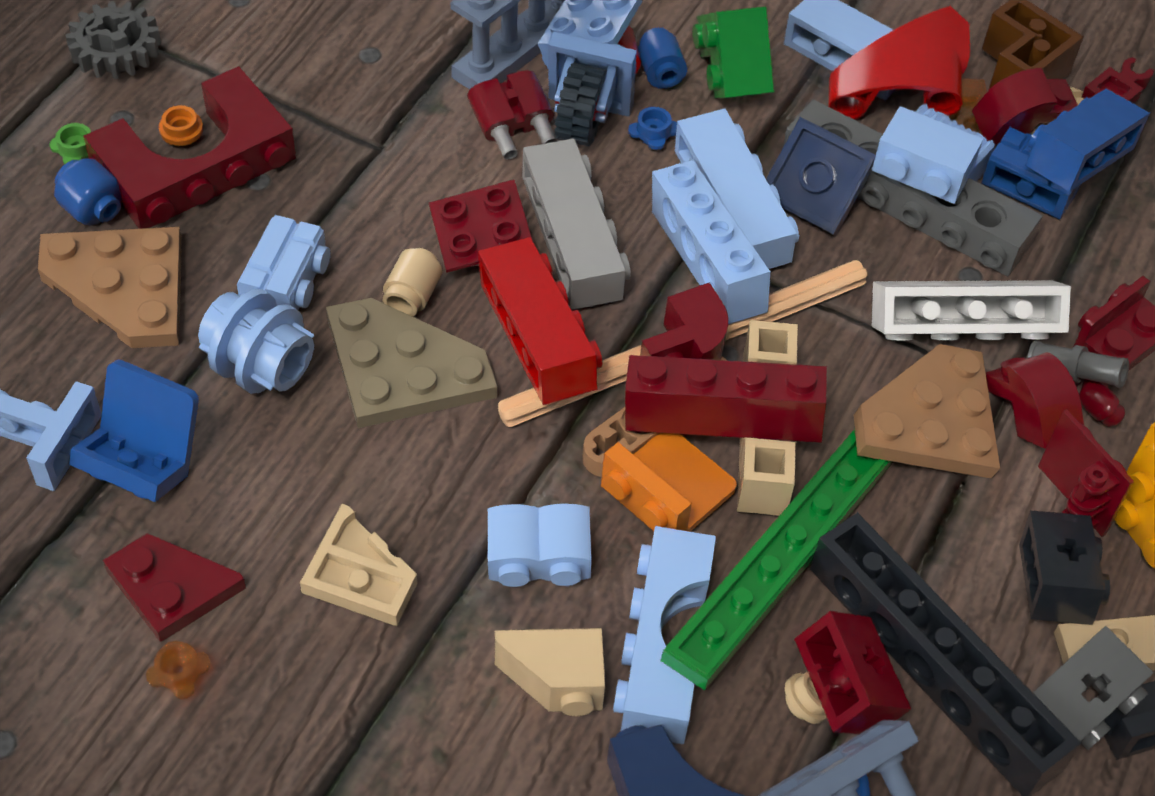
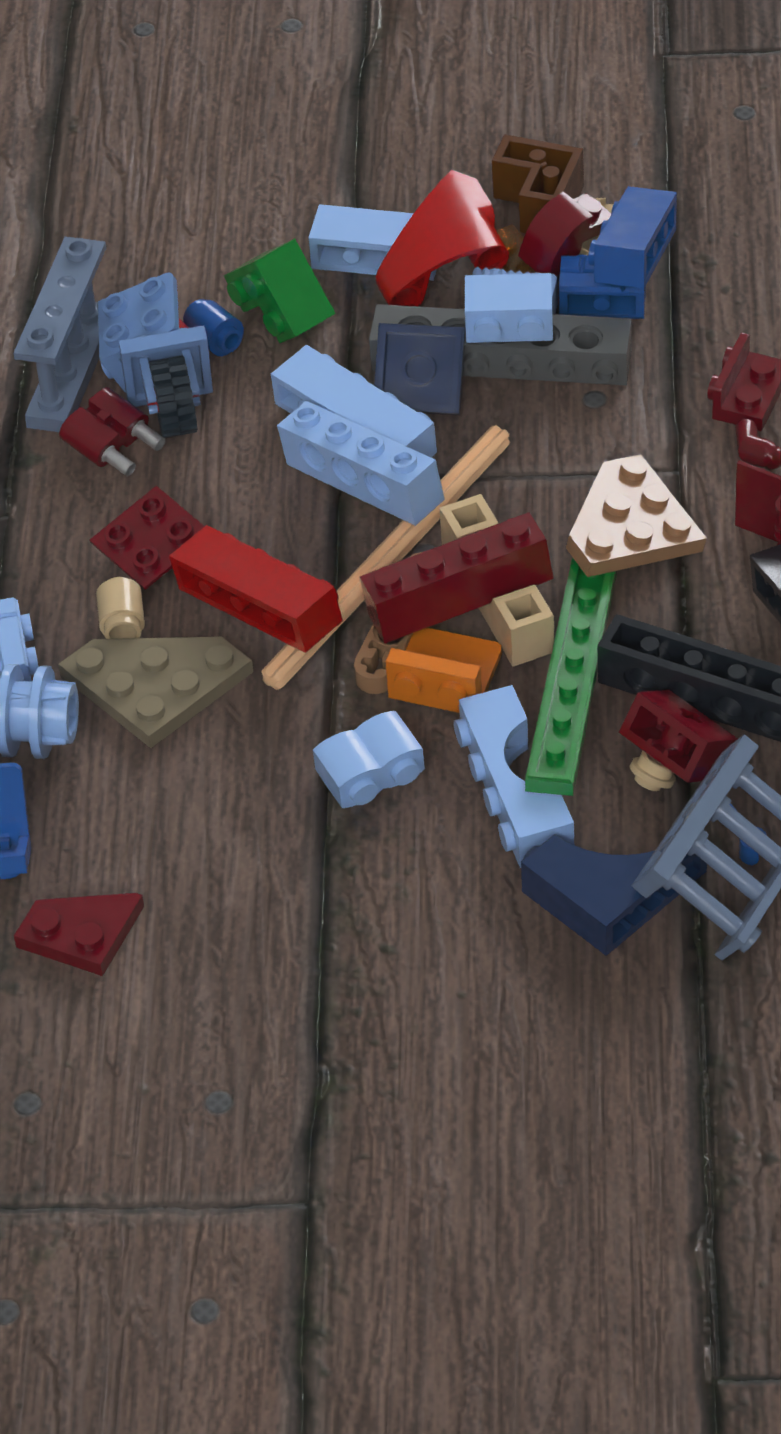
camera: 20 degrees left, 5 degrees down
(174, 655) = (133, 972): clear orange plate -> none
(359, 571) = (235, 847): tan wing -> none
(555, 666) = (441, 839): tan slope -> none
(574, 223) = (229, 496): light grey brick -> none
(653, 127) = (244, 391): blue plate -> none
(694, 326) = (392, 533): dark red brick -> none
(970, 307) = (610, 421): white brick -> none
(1039, 394) = (708, 464): dark red brick -> none
(1086, 364) = (725, 428): dark grey pin -> none
(1123, 83) = (634, 175): dark red plate -> none

